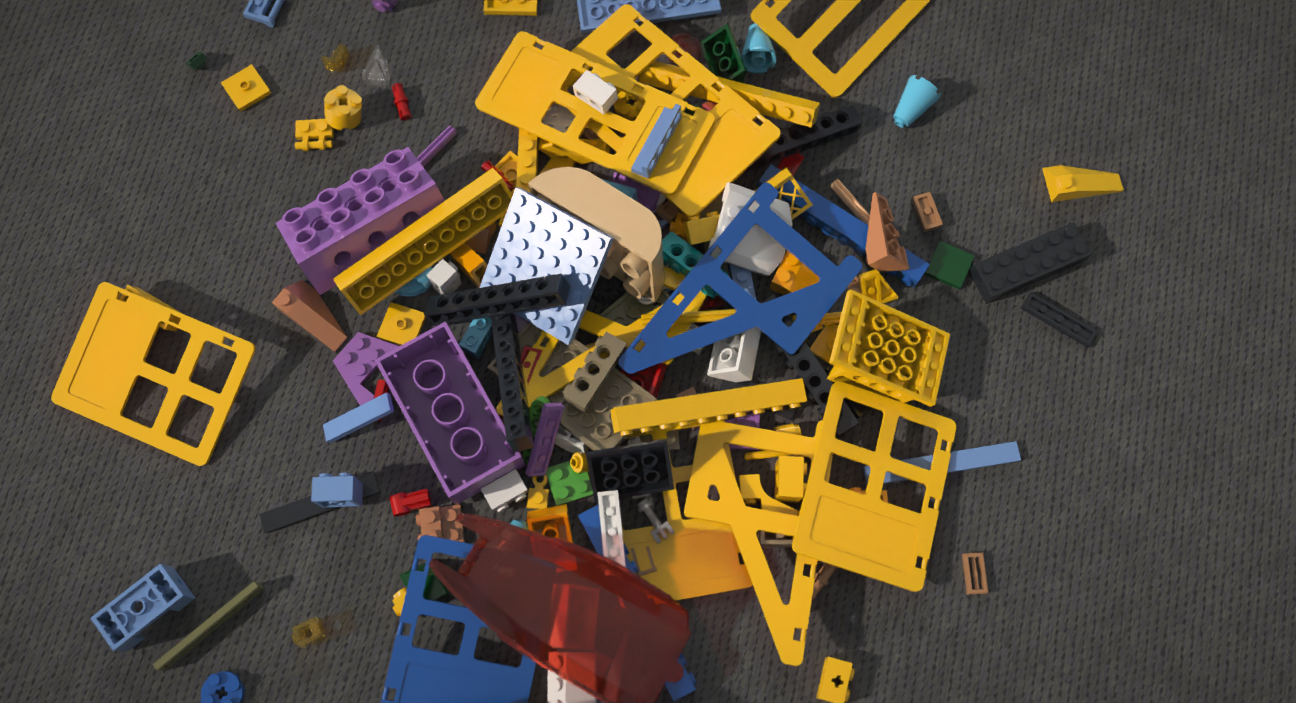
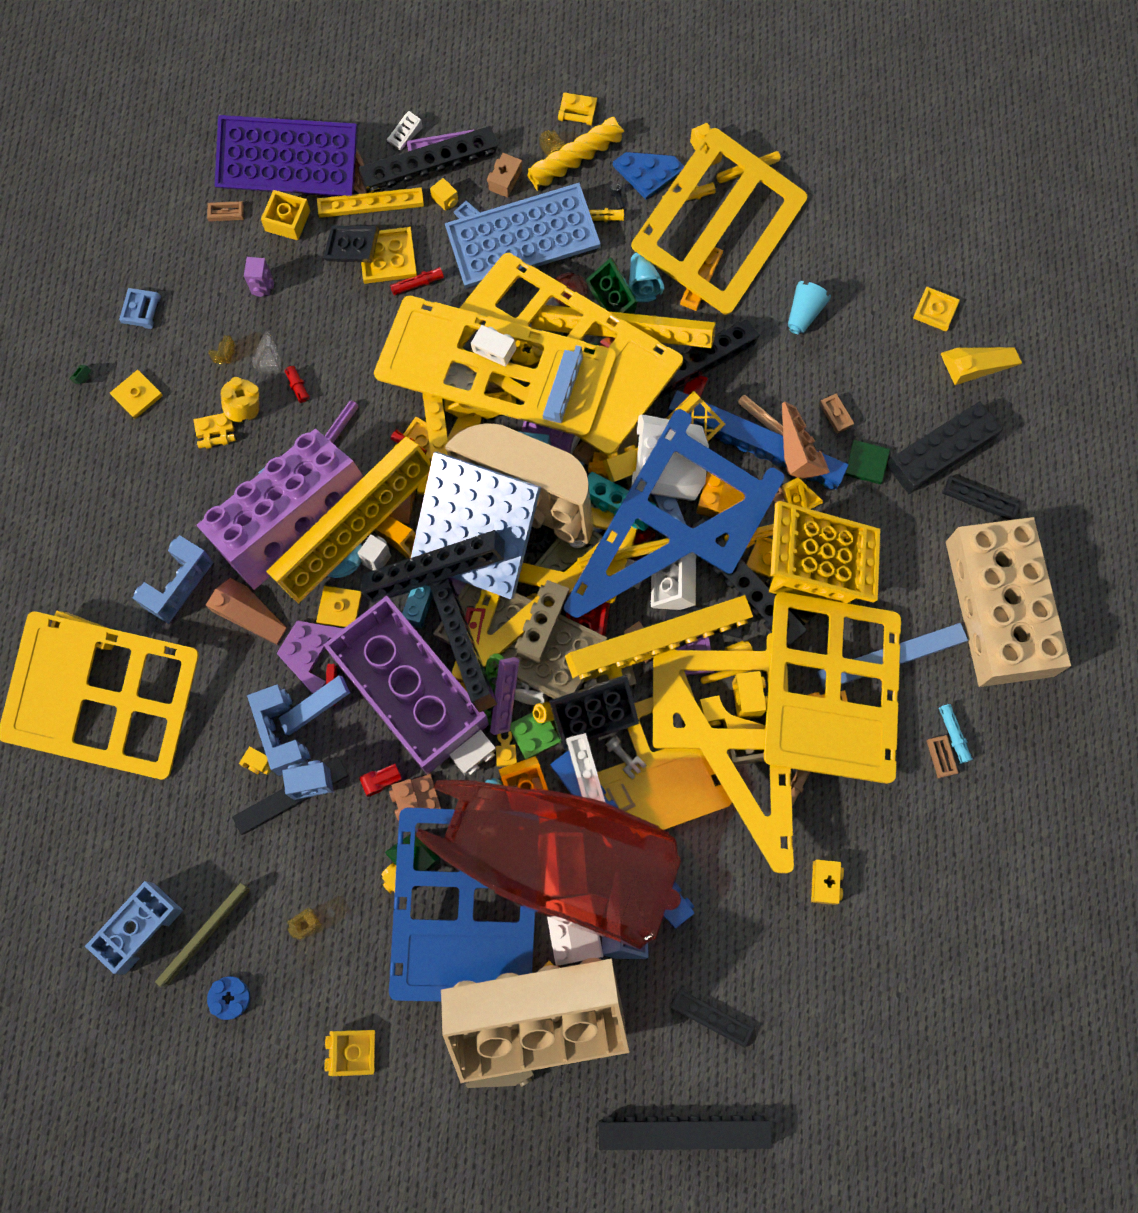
camera: 10 degrees left, 0 degrees up
(248, 284) = (195, 565): none -> medium blue plate
(293, 464) = (256, 761): none -> yellow brick
(310, 410) = (268, 704): none -> medium blue plate
(536, 19) = (416, 281): none -> red pin
(821, 52) = (706, 271): none -> light orange tile
(993, 557) = (955, 733): none -> medium azure pin
(1045, 123) = (936, 309): none -> yellow tile
(1047, 441) = (993, 620): none -> tan brick

